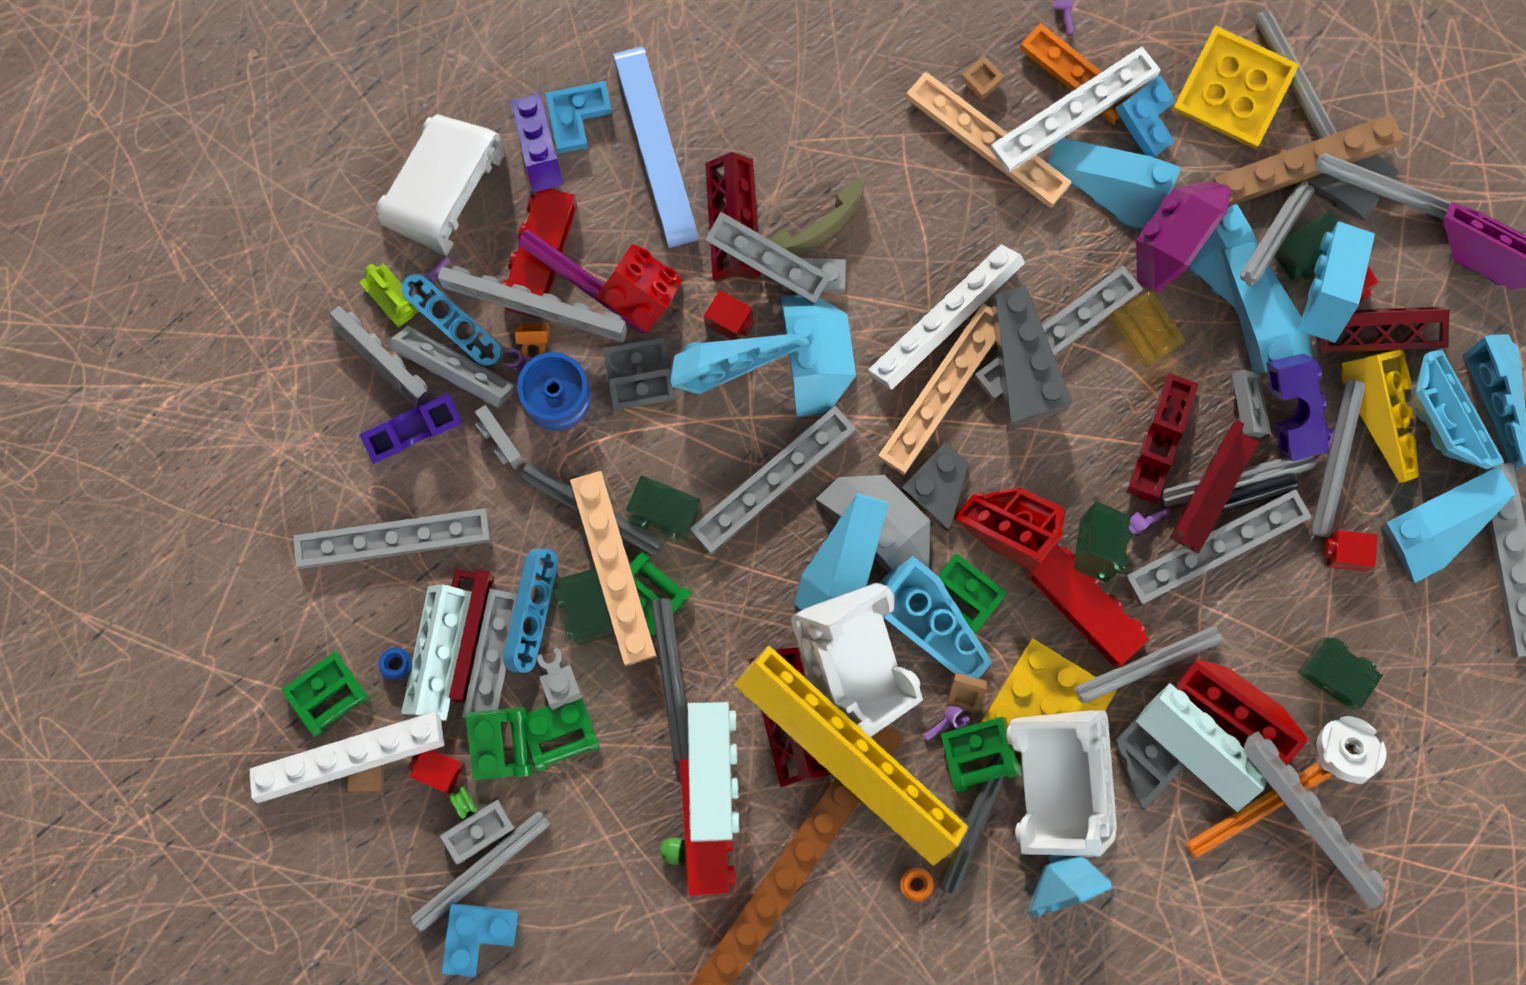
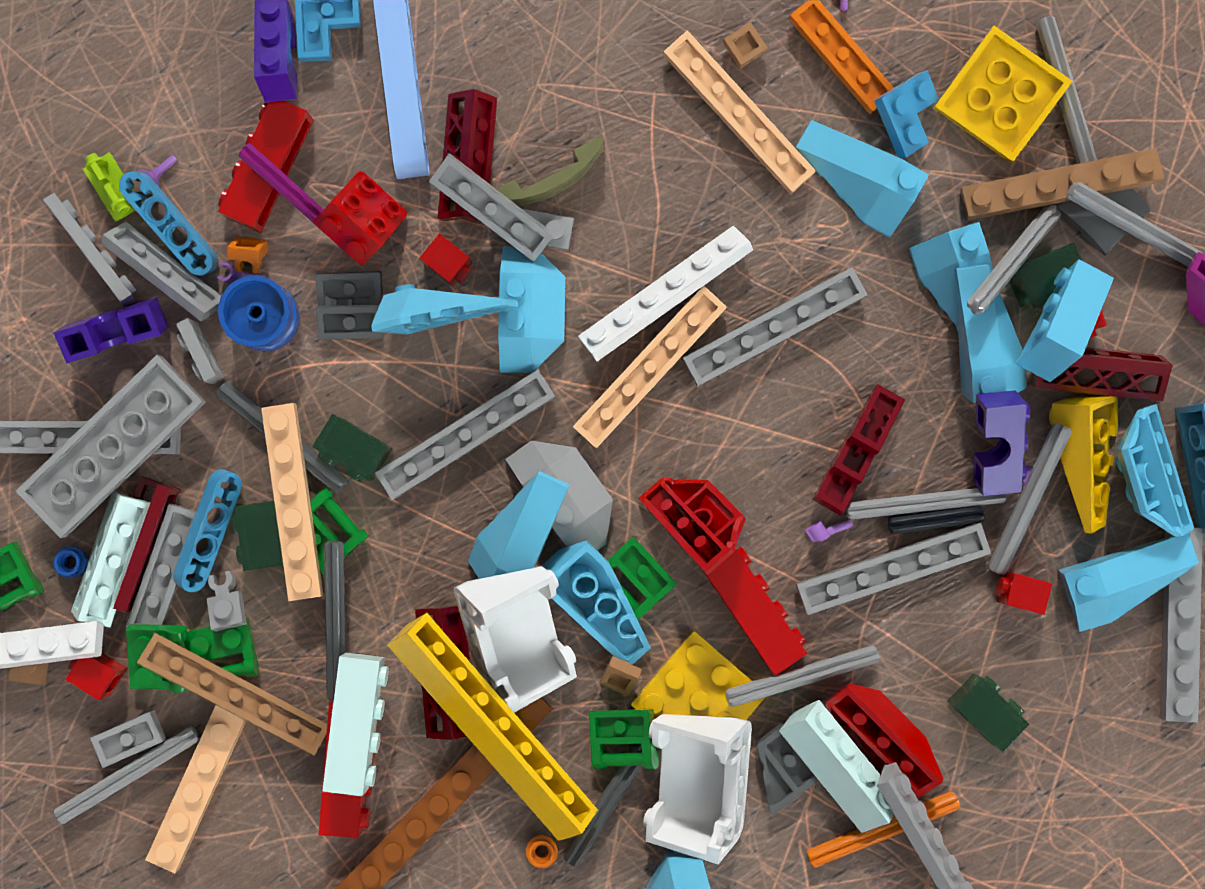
camera: 10 degrees right, 10 degrees up
(425, 539) = (110, 446): none -> light grey plate
(439, 181) = (173, 73): white windscreen -> none
(463, 802) = (117, 708): bright green bush -> none
(470, 927) = (111, 828): dark azure plate -> none
(521, 299) = (234, 214): light grey plate -> none
(557, 861) = (195, 790): none -> light nougat plate
(583, 766) = (233, 694): none -> medium nougat plate
(673, 851) = (312, 785): bright green hinge -> none
(938, 485) = (629, 463): dark grey wing -> none
(950, 720) = (603, 697): medium lavender hand -> none
(1027, 365) = (735, 359): dark grey wedge -> none
(1074, 109) = (832, 95): white plate -> none
(1102, 542) = (778, 550): clear green brick -> none
(1148, 328) = (865, 336): clear yellow plate -> none
(1178, 232) = (916, 242): magenta wedge -> none
(1214, 488) = (900, 511): dark red fence -> none
(1251, 403) = (953, 429): light grey plate -> none
(1339, 761) = (965, 790): white plate -> none

